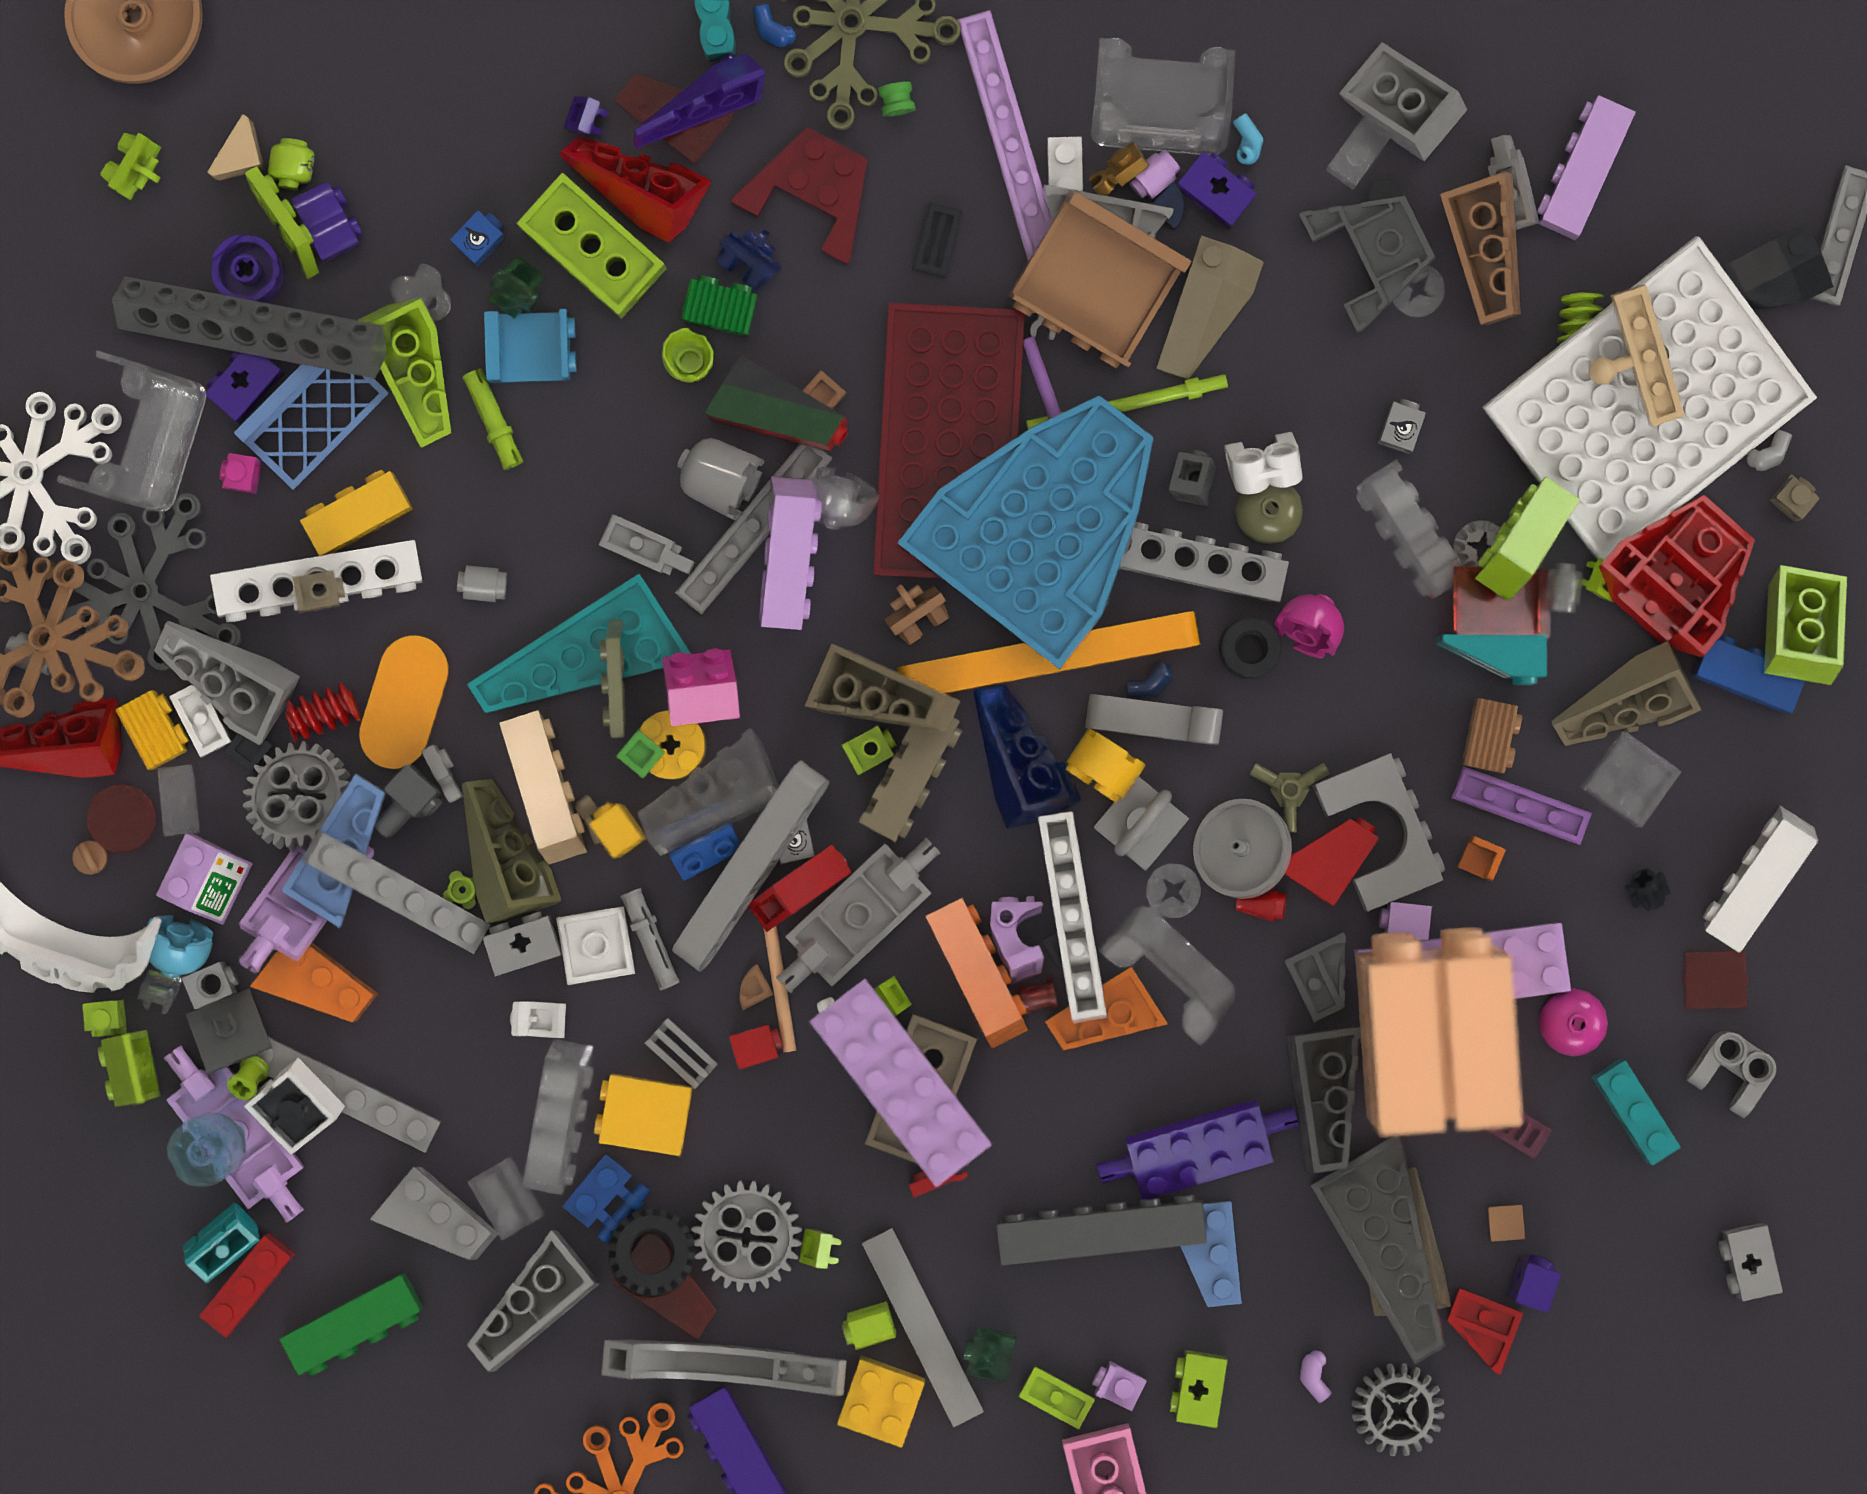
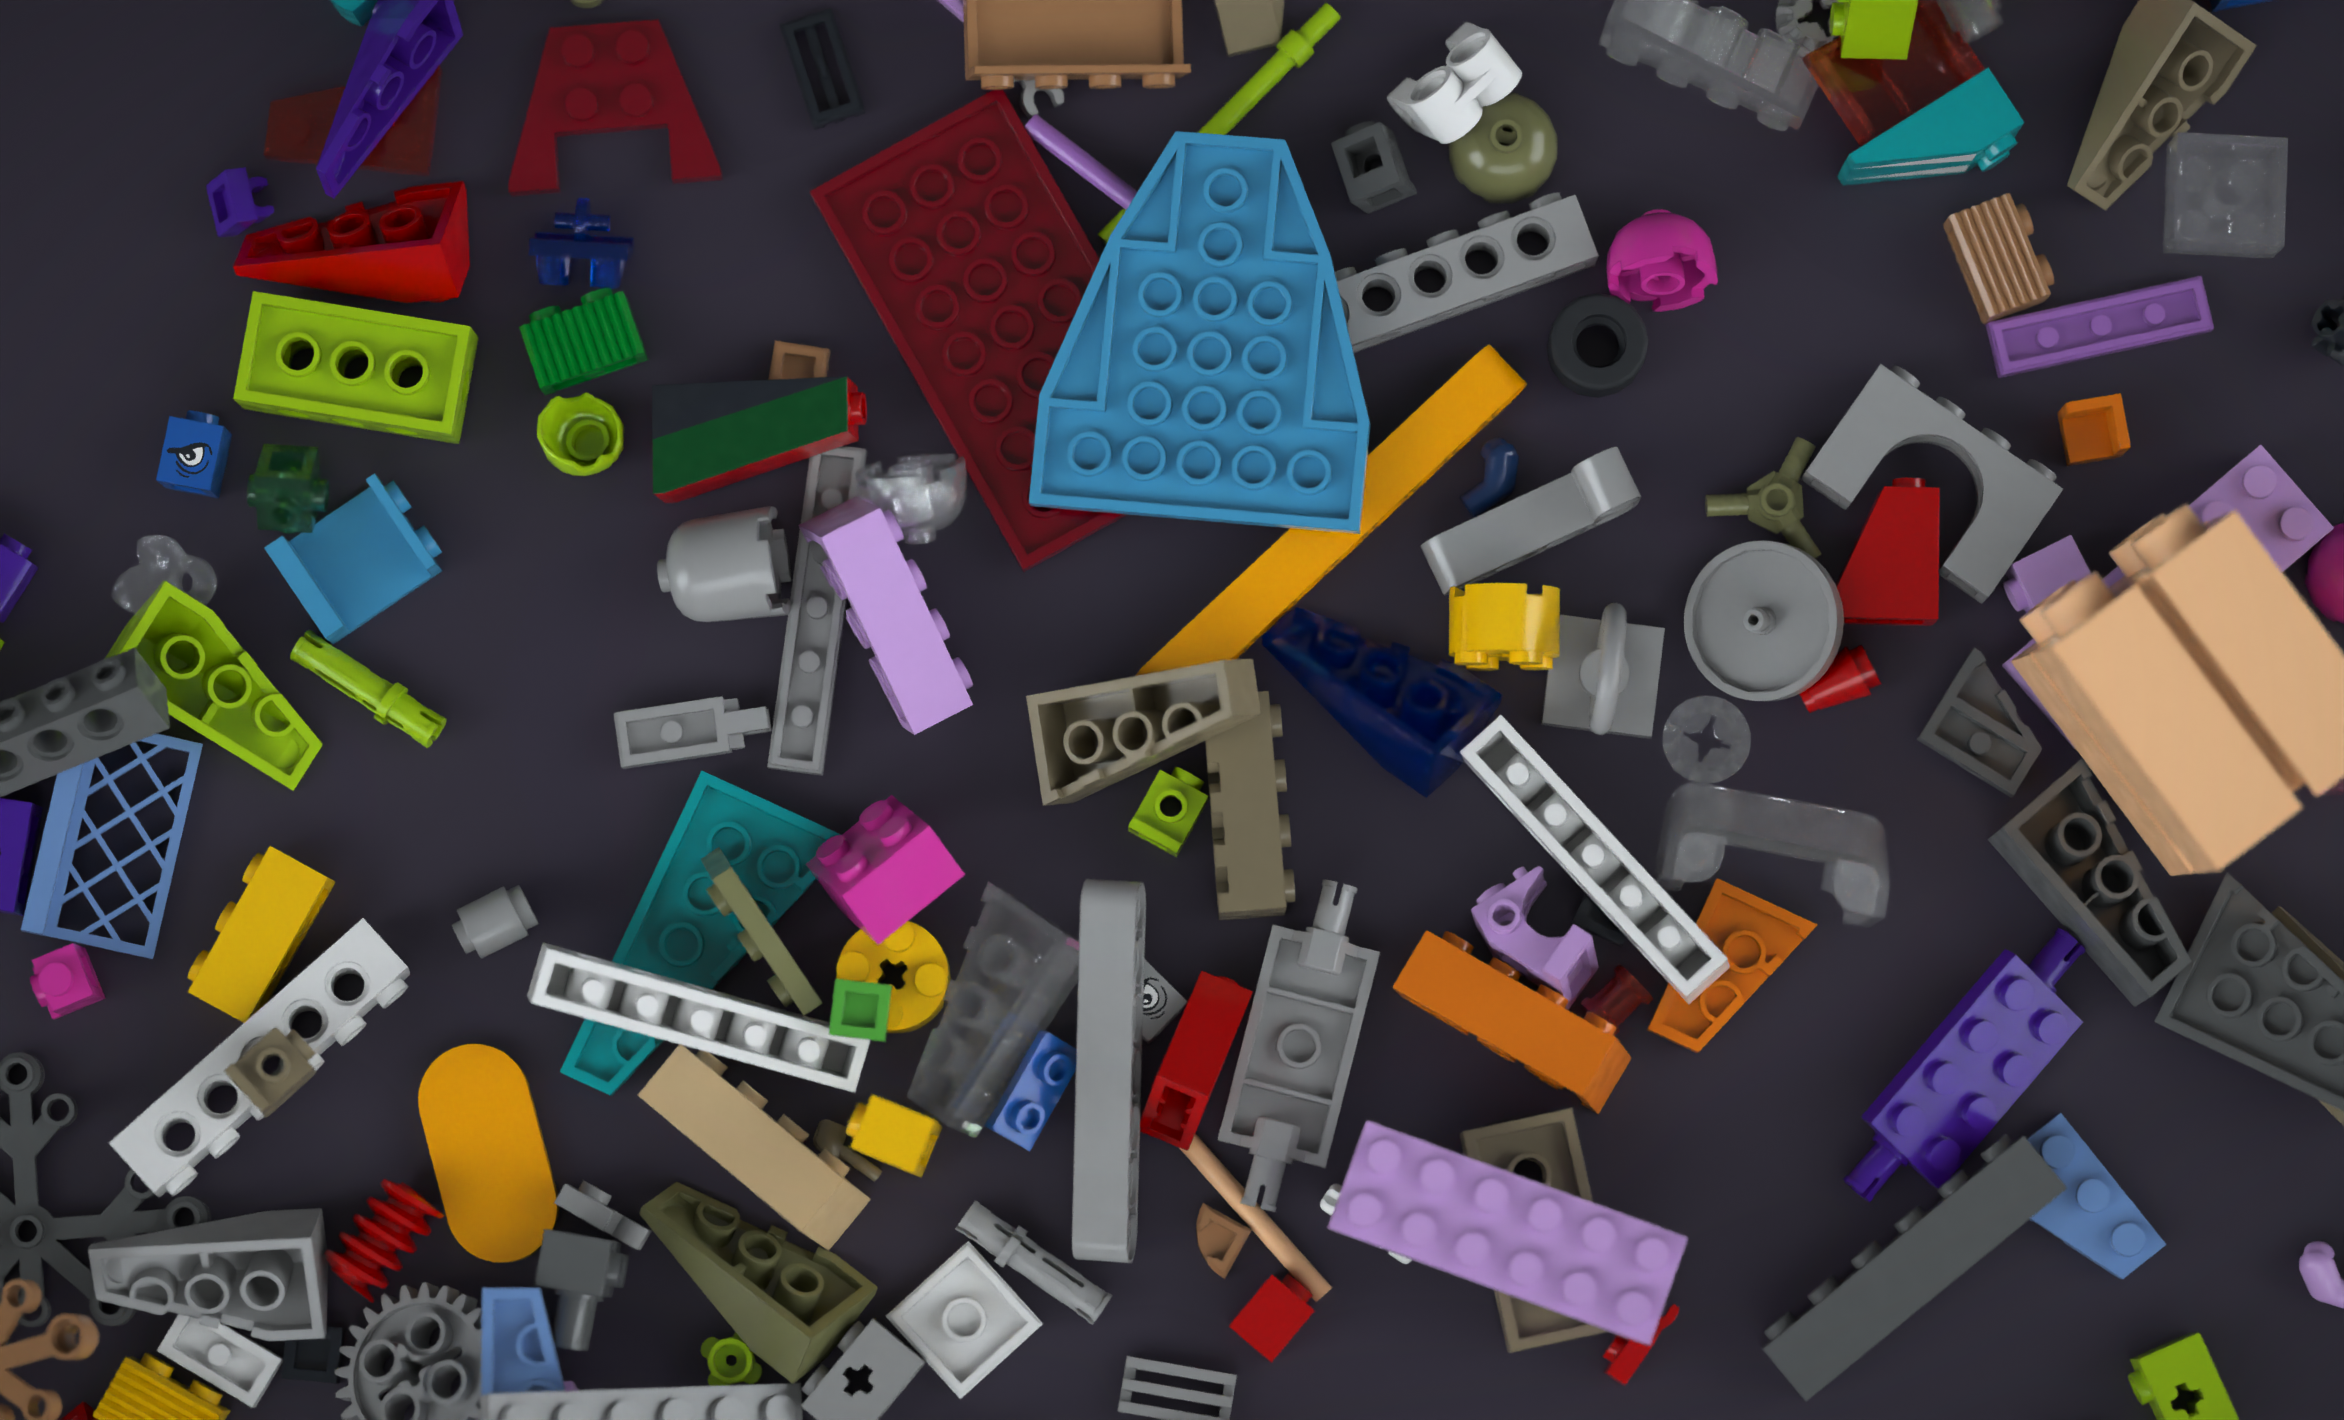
camera: 30 degrees left, 5 degrees down
(553, 701) = (695, 1017): none -> white brick
(893, 996) = (1418, 1124): lime tile -> none
(913, 606) = (1104, 578): medium nougat hips -> none

